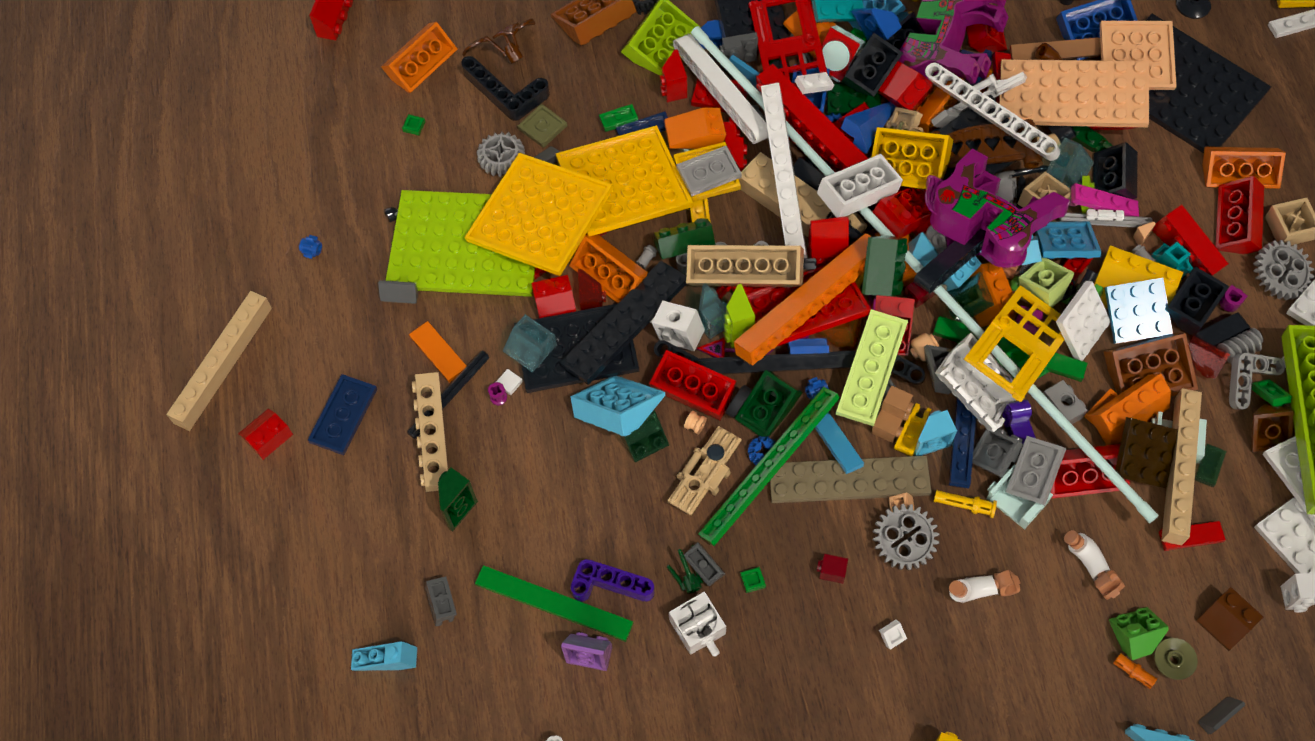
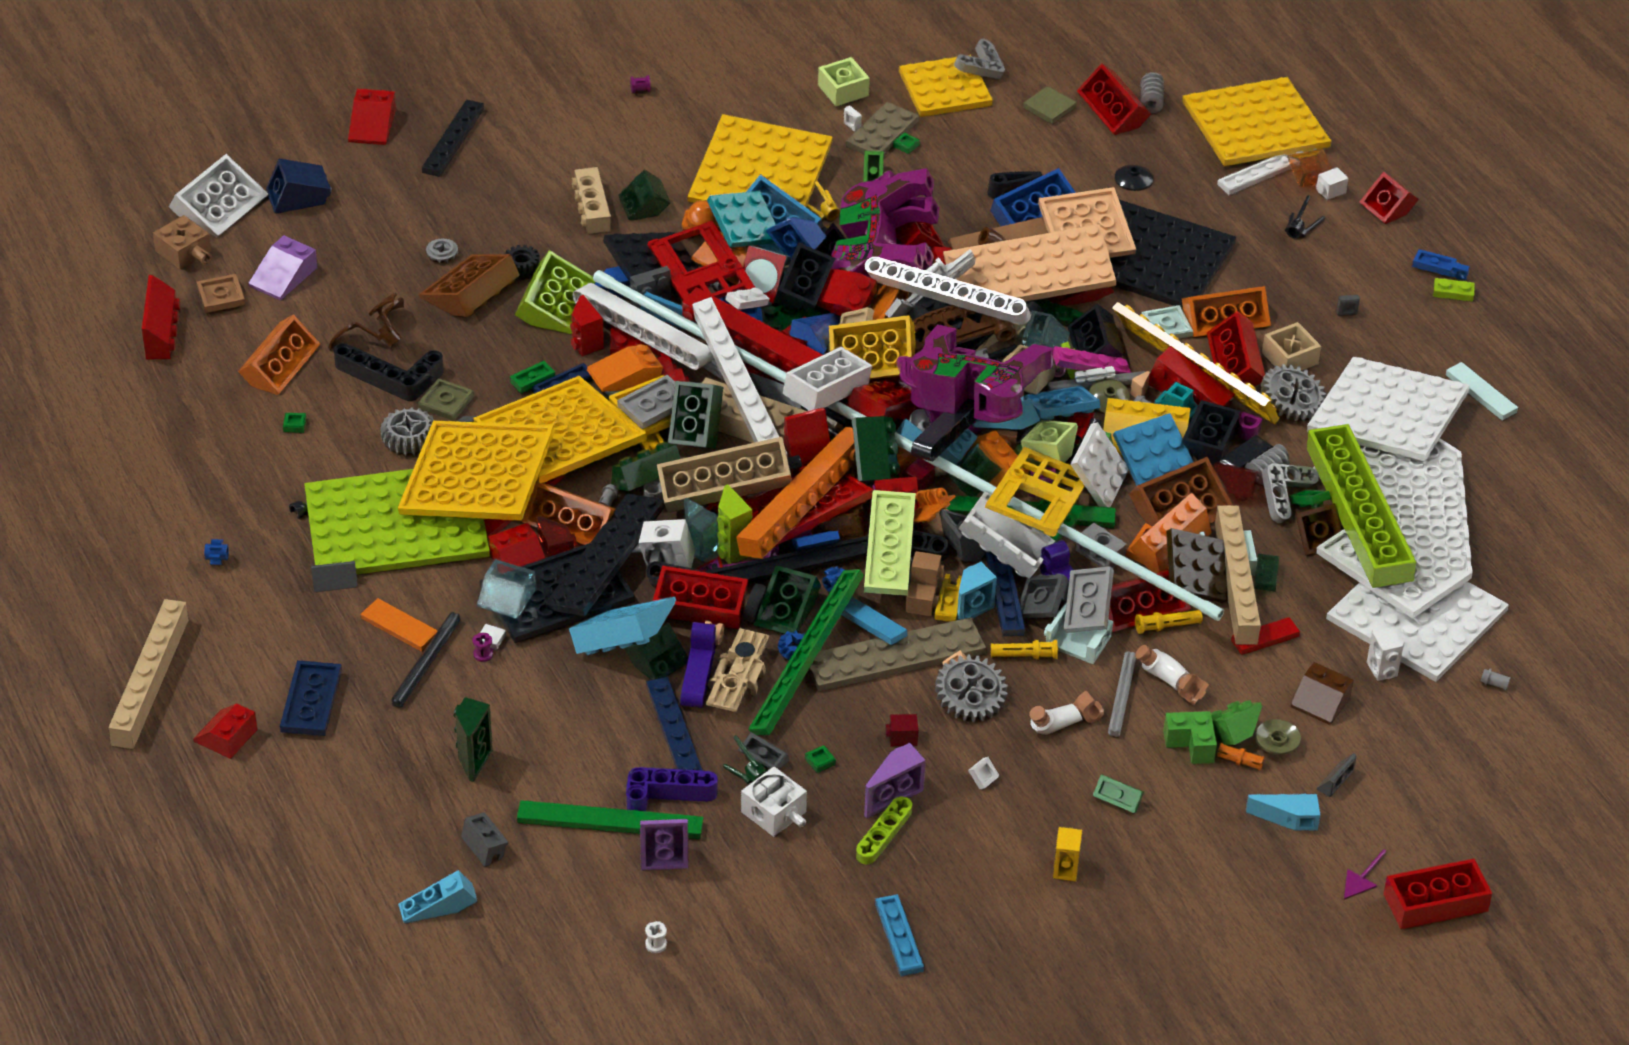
camera: 20 degrees left, 20 degrees down
(430, 383) = (421, 690): tan brick -> none
(635, 517) = (672, 724): none -> dark blue plate
(674, 455) = (699, 665): none -> dark purple beam
(740, 192) = (695, 414): none -> dark green slope
(790, 676) = (886, 831): none -> lime beam
(814, 625) = (897, 776): none -> medium lavender slope
(919, 335) = (931, 502): none -> orange hinge
(1010, 688) = (1118, 793): none -> green plate
(1042, 572) = (1122, 694): none -> light grey axle
(1097, 499) = (1159, 622): none -> yellow pin
(1099, 634) = (1191, 731): none -> bright green brick
(1103, 235) = (1101, 387): none -> olive dish
(1182, 197) = (1159, 339): none -> yellow plate
(1185, 168) = (1171, 320): none -> light aqua tile

